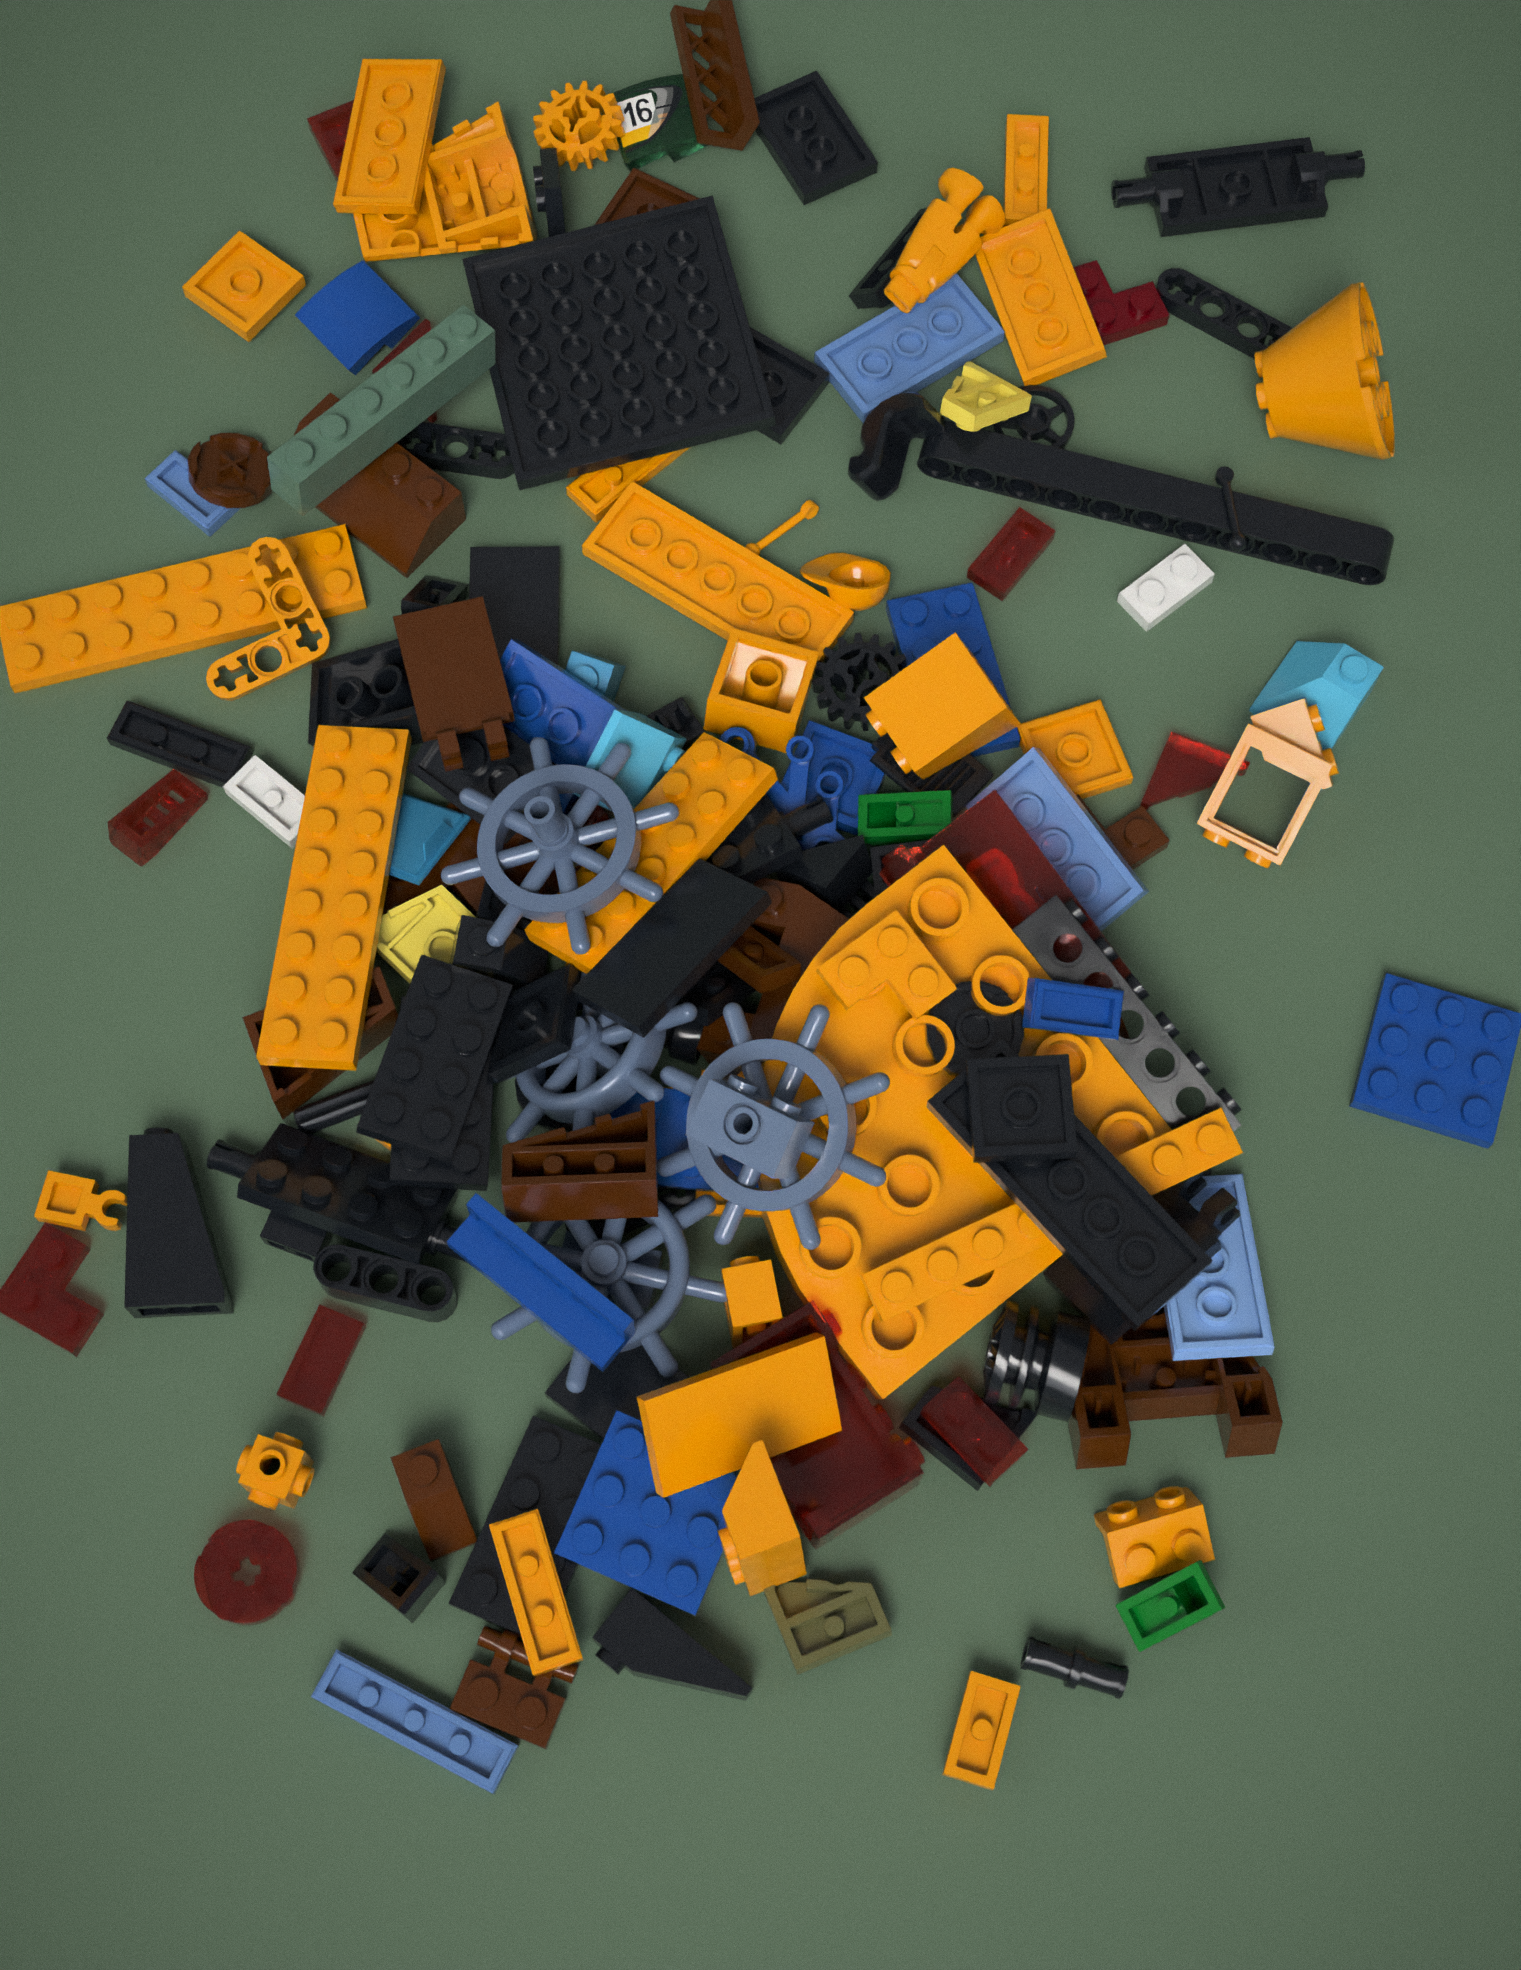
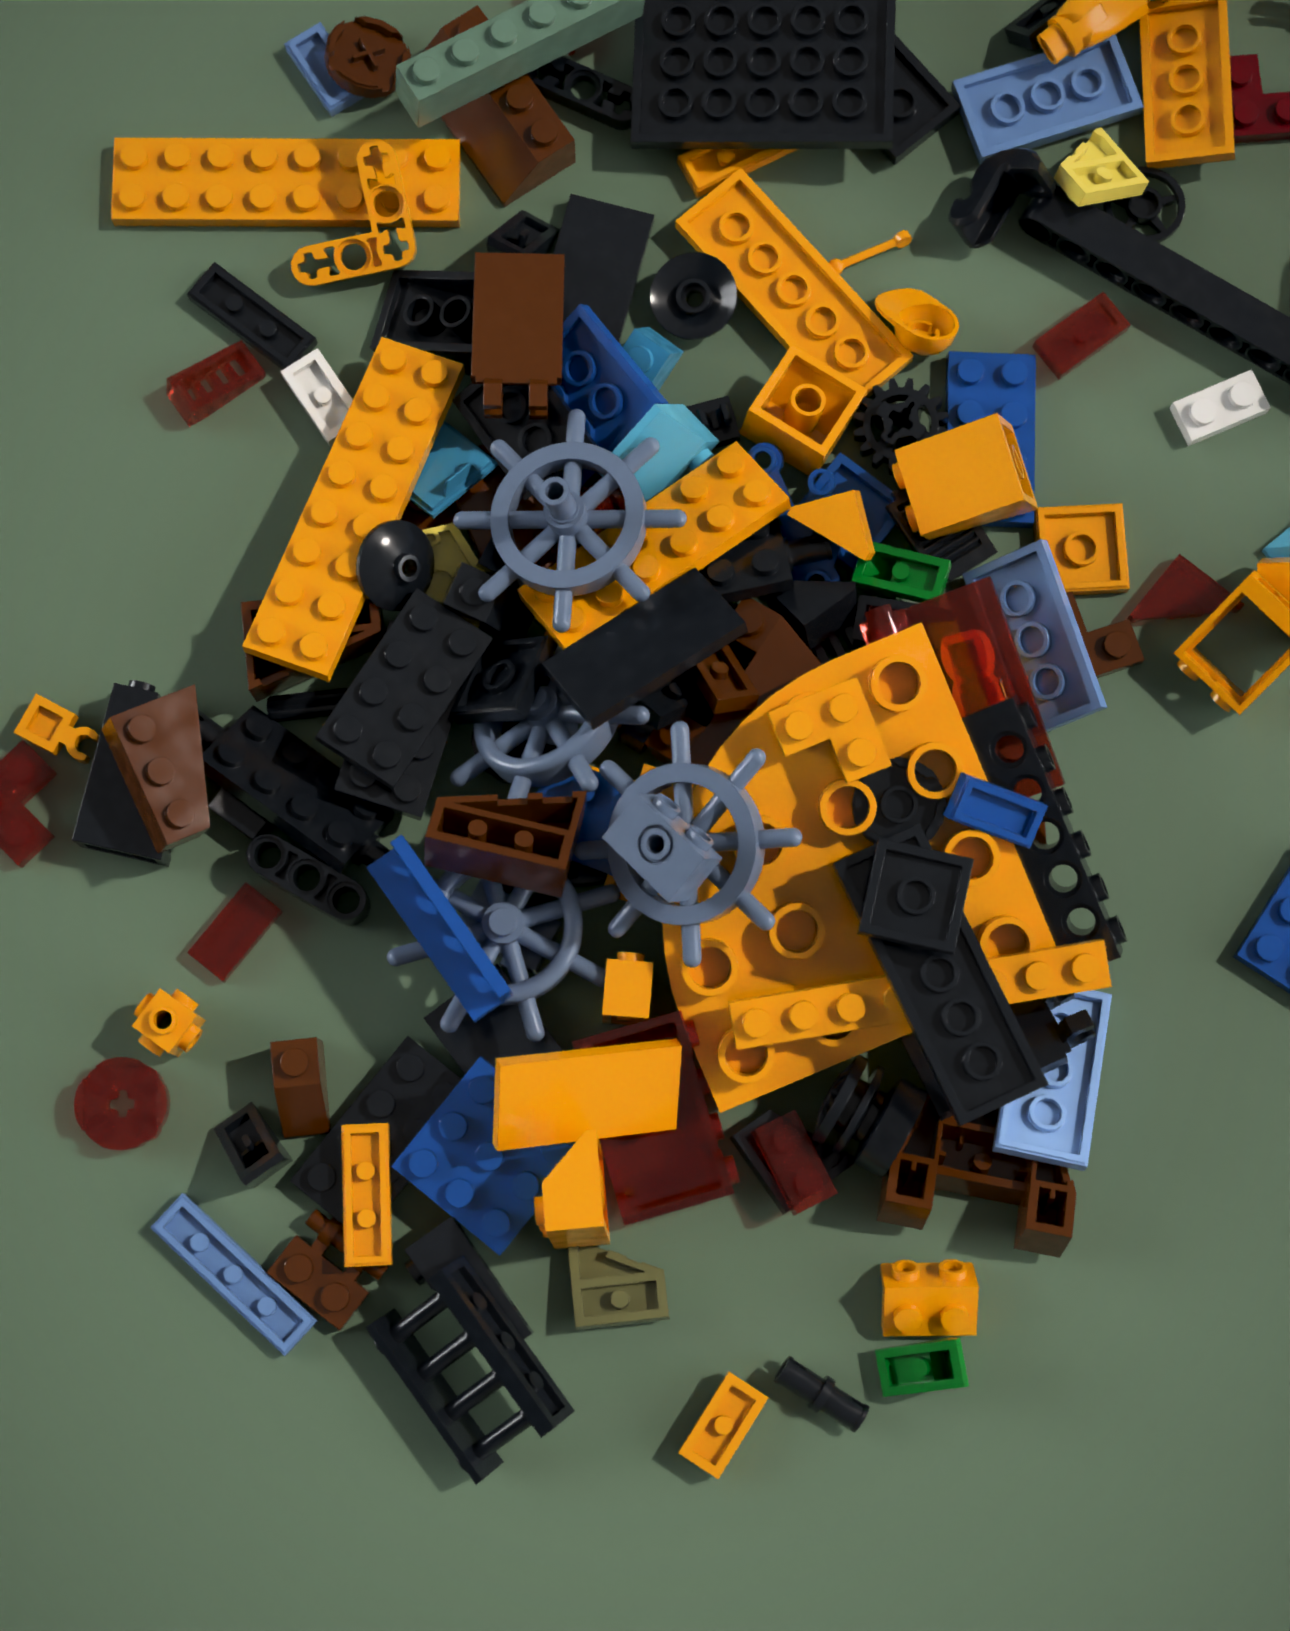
camera: 15 degrees right, 10 degrees up
(204, 1202) = (163, 766): none -> reddish brown wedge
(379, 937) = (382, 559): none -> black dish
(619, 591) = (690, 275): none -> black dish
(742, 1725) = (501, 1346): none -> black fence
(827, 777) = (839, 520): none -> light orange slope

